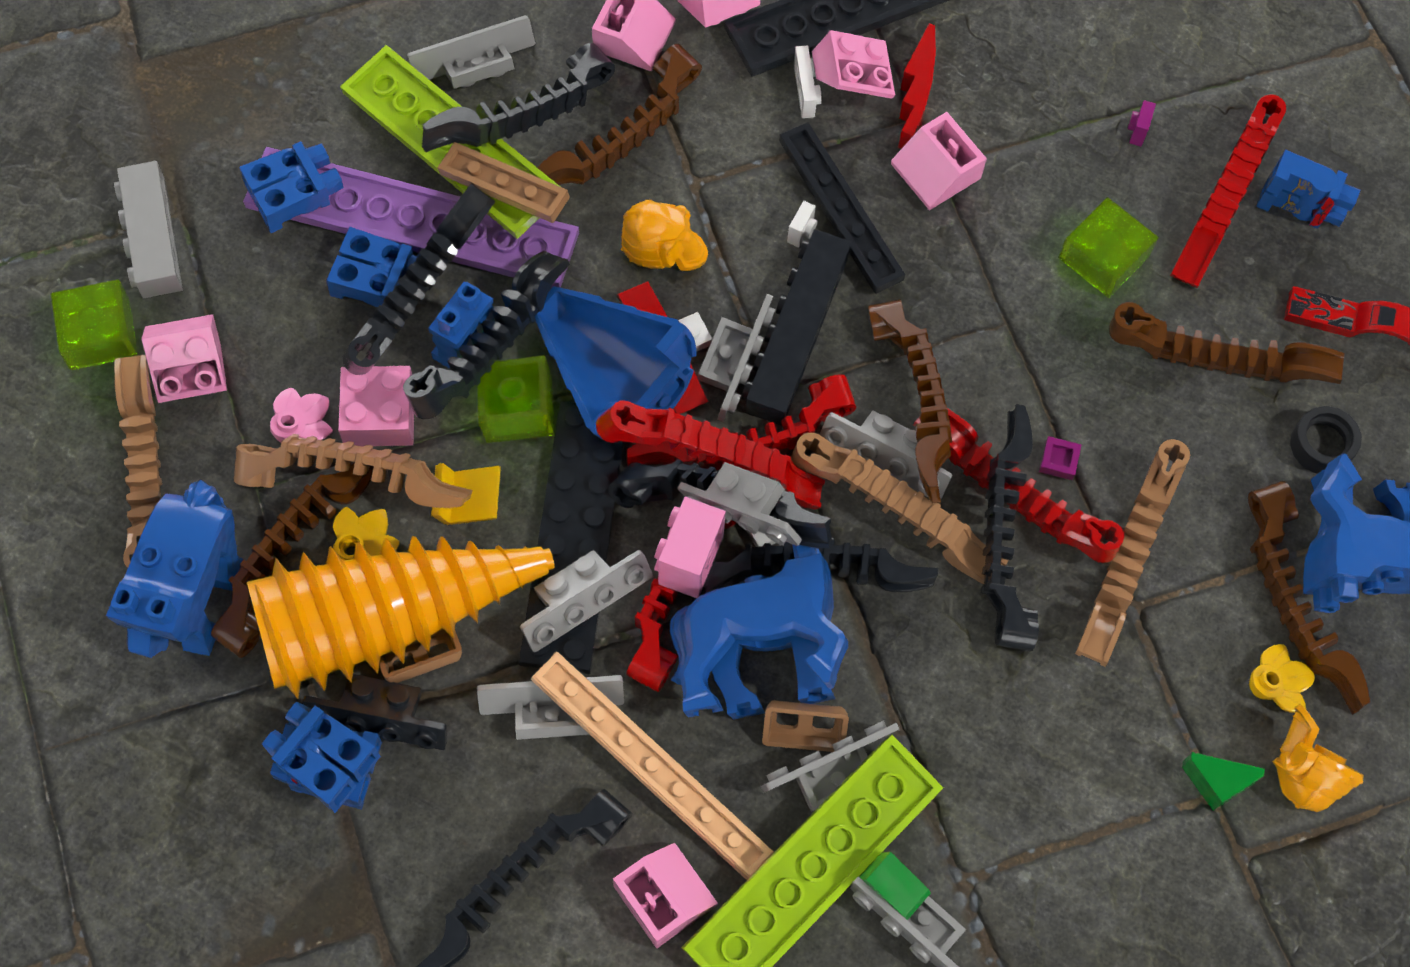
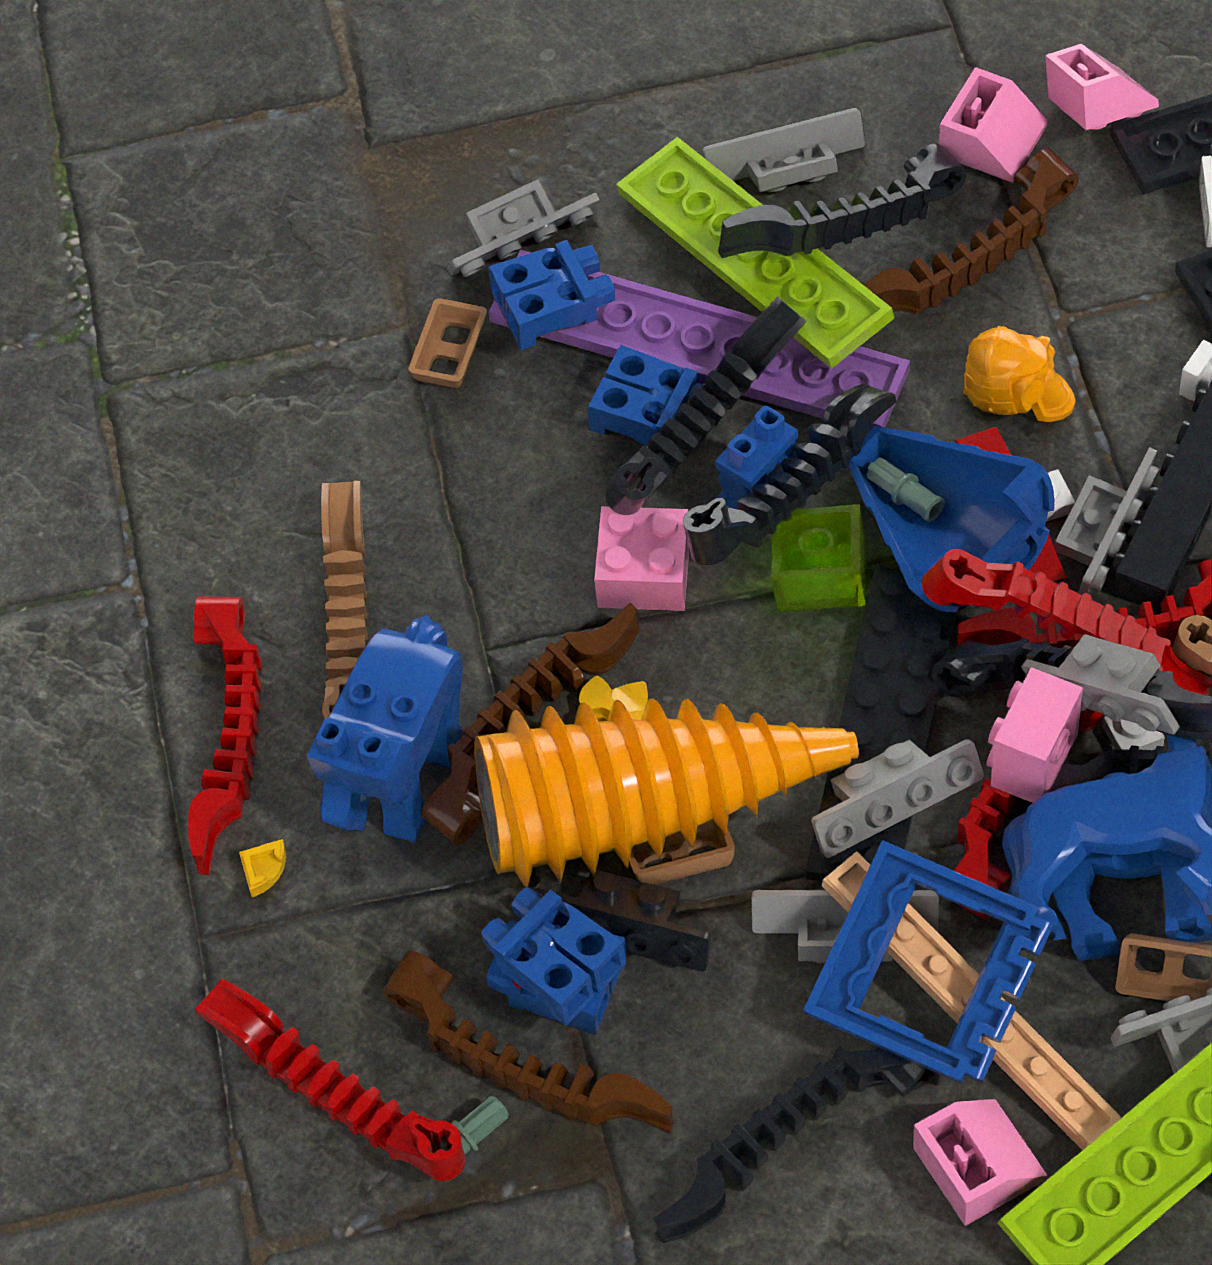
camera: 15 degrees right, 10 degrees down
(42, 481) = (225, 788): none -> red piece
(87, 686) = (263, 865): none -> yellow tile
(94, 324) = (296, 445): clear neon green brick -> none
(147, 872) = (263, 1040): none -> red piece
(149, 230) = (370, 340): light grey brick -> none
(184, 358) = (406, 491): bright pink slope -> none
(200, 231) = (430, 346): none -> medium nougat piece
(218, 783) = (418, 989): none -> reddish brown piece
(257, 467) = (490, 620): medium nougat piece -> none
(260, 120) = (513, 220): none -> light grey bracket
(260, 907) = (480, 1123): none -> sand green axle
(301, 413) = (544, 568): bright pink plate -> none
(483, 500) = (748, 669): yellow piece -> none
(504, 182) = (819, 297): medium nougat plate -> none
(567, 726) = (868, 934): none -> blue hinge
(580, 337) = (905, 489): none -> sand green axle

